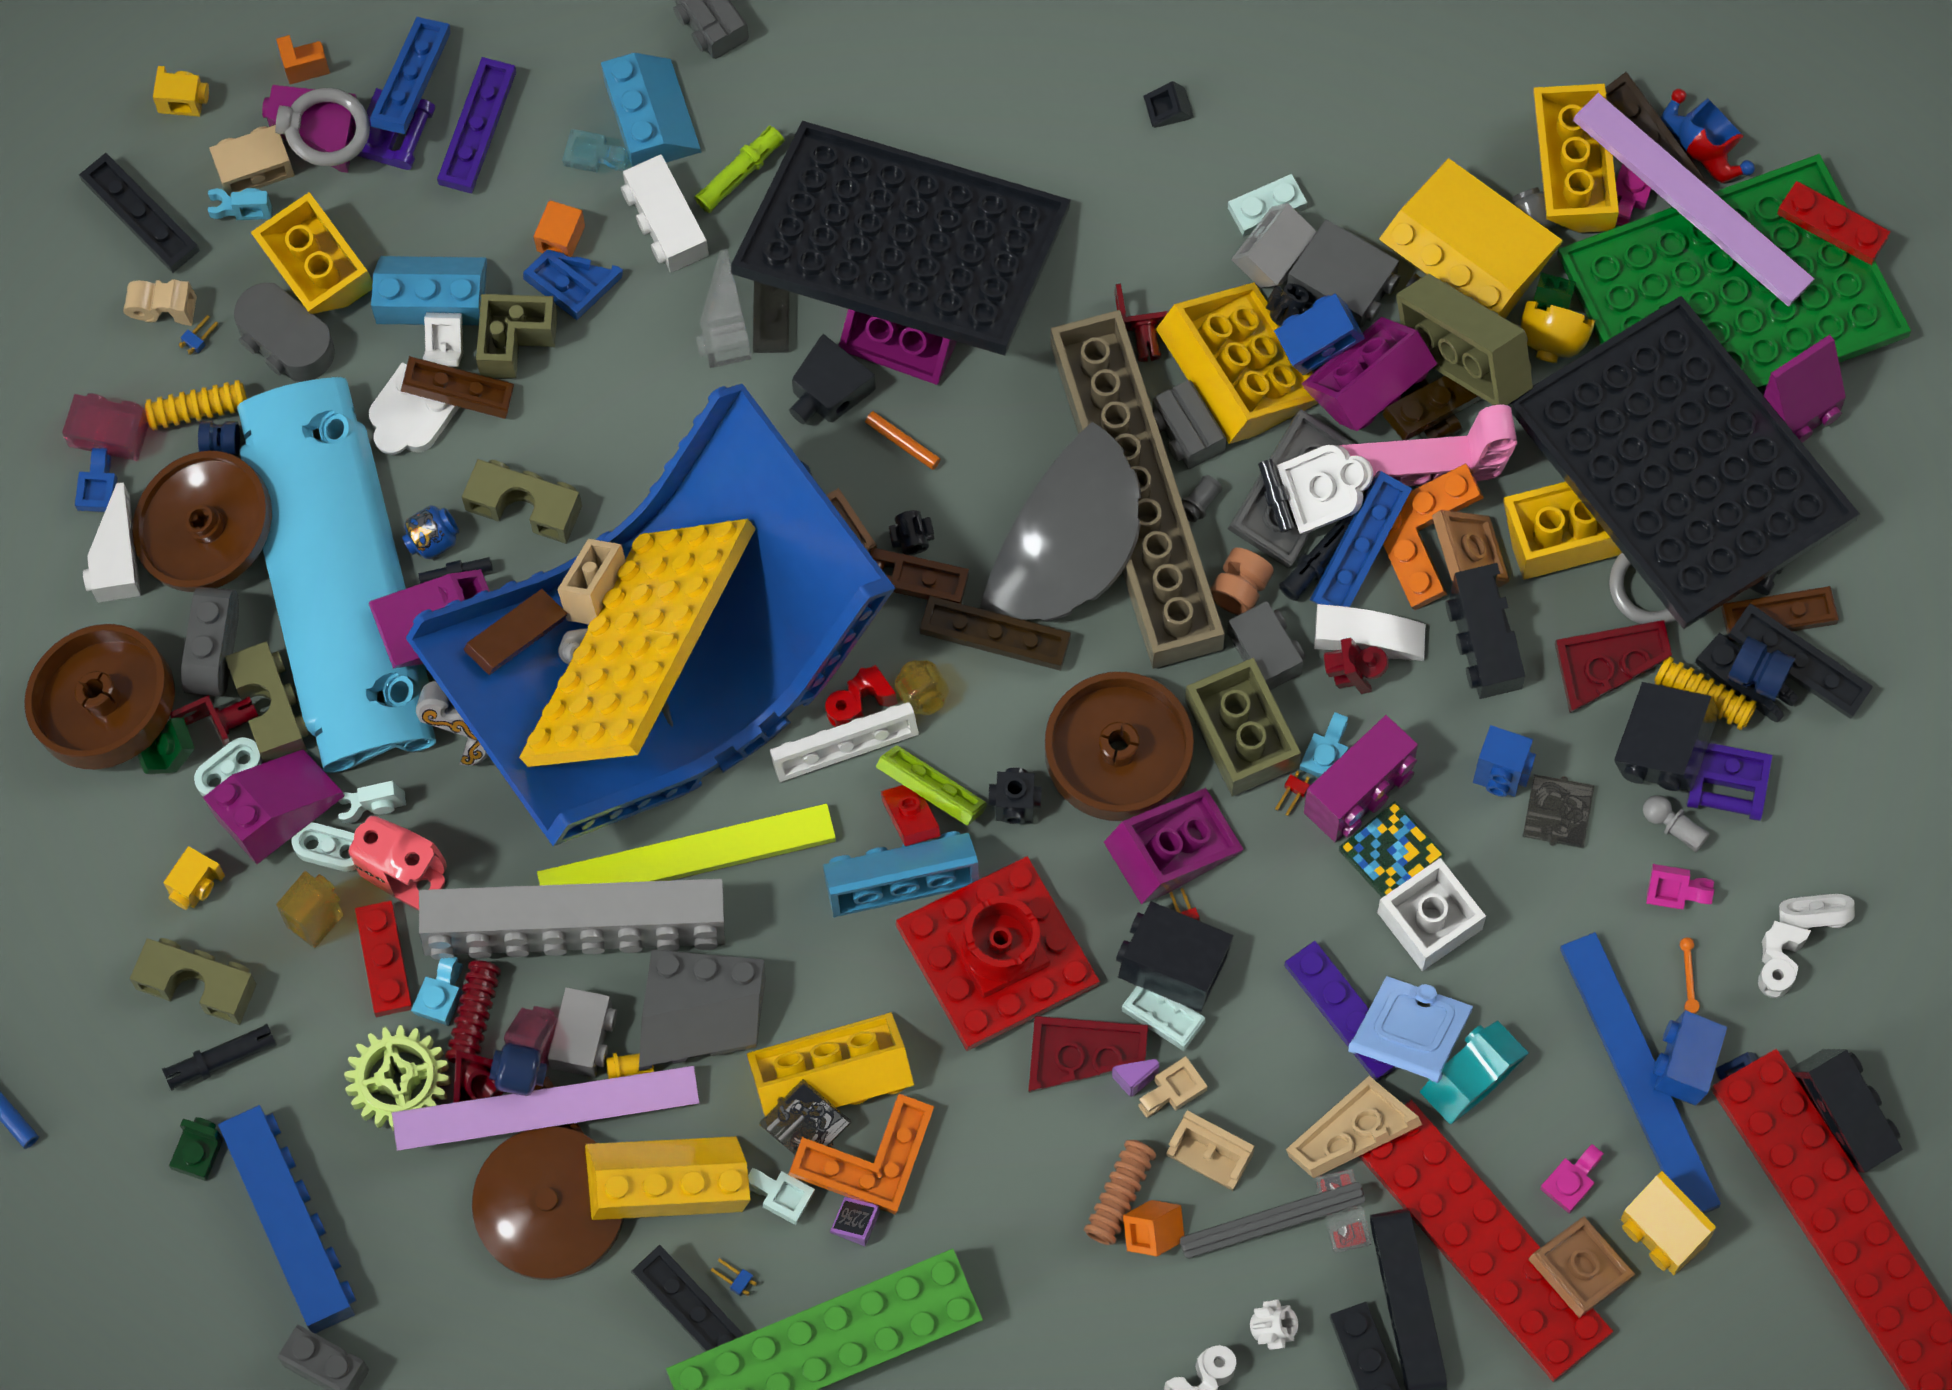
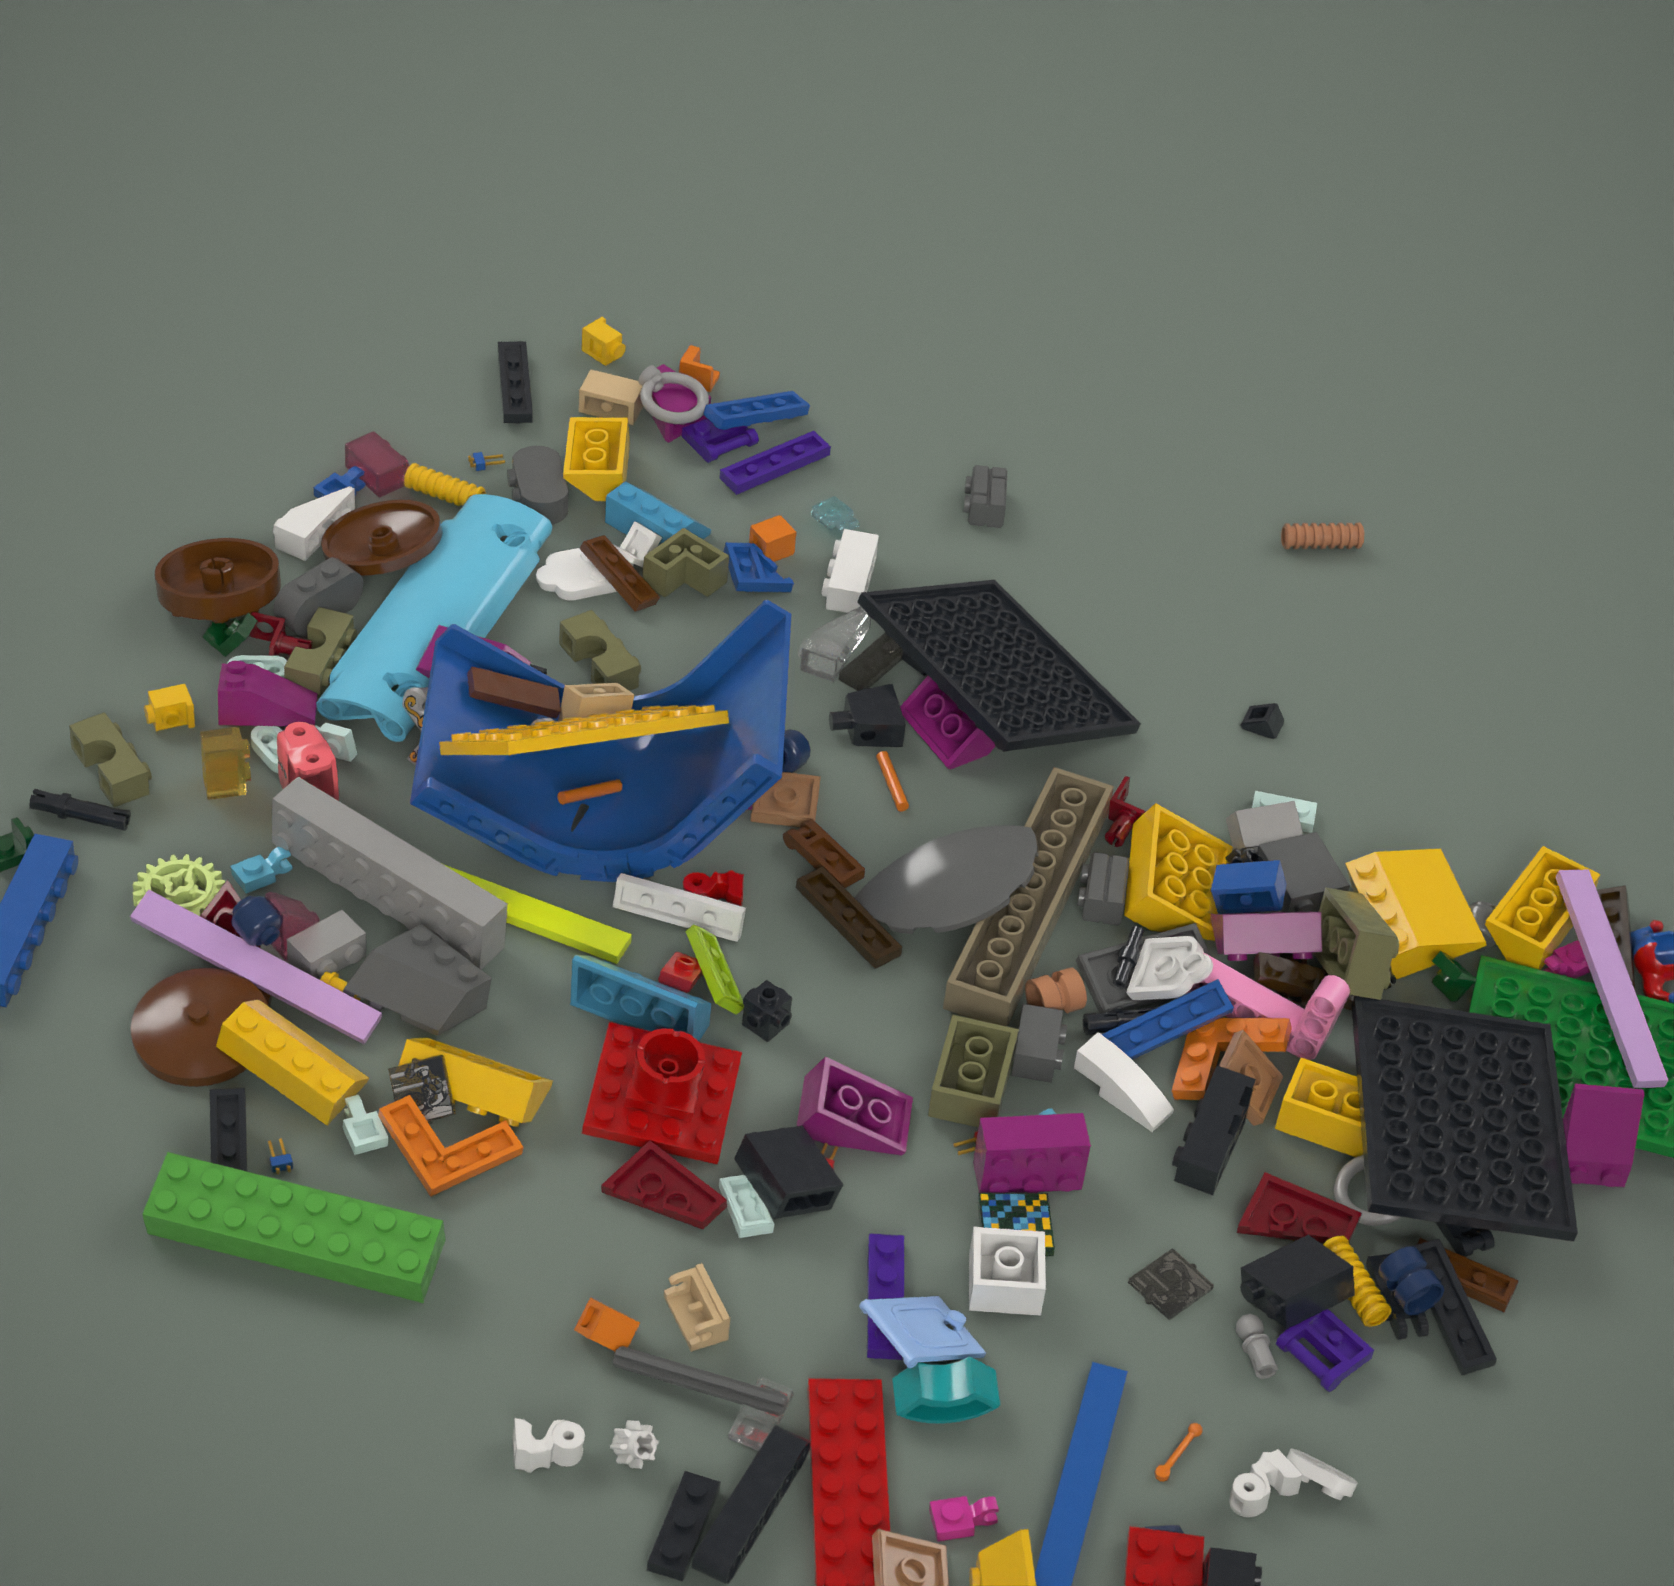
camera: 30 degrees right, 25 degrees down
(148, 300) = (489, 427): tan leg -> none
(219, 437) = (445, 509): dark blue wheel -> none
(244, 205) = (578, 407): medium azure plate -> none
(383, 958) = (241, 831): red plate -> none
(430, 532) = (522, 632): head -> none
(474, 1008) = (285, 882): dark red piece -> none
(649, 108) = (898, 513): dark azure slope -> none
(749, 159) = (927, 578): lime pin -> none
(855, 1220) = (399, 1181): slope -> none
(911, 532) = (845, 825): black gear -> none
(922, 686) = (765, 911): clear yellow head -> none
(1112, 710) = (873, 1026): reddish brown piece -> none
(1120, 1192) = (604, 1287): nougat piece -> none
(1136, 1075) = (689, 1226): medium lavender slope -> none
(1175, 1085) = (713, 1251): tan plate -> none
(1201, 498) = (1065, 936): dark grey pin -> none
(1351, 1128) = (821, 1363): tan wing -> none
(1352, 665) = (1093, 1089): dark red hips -> none
(1504, 762) = (1151, 1212): blue brick -> none
(1555, 331) = (1434, 988): yellow cylinder -> none
(1673, 886) = (1216, 1382): dark pink plate -> none
(1689, 1057) = (1126, 1493): blue brick -> none

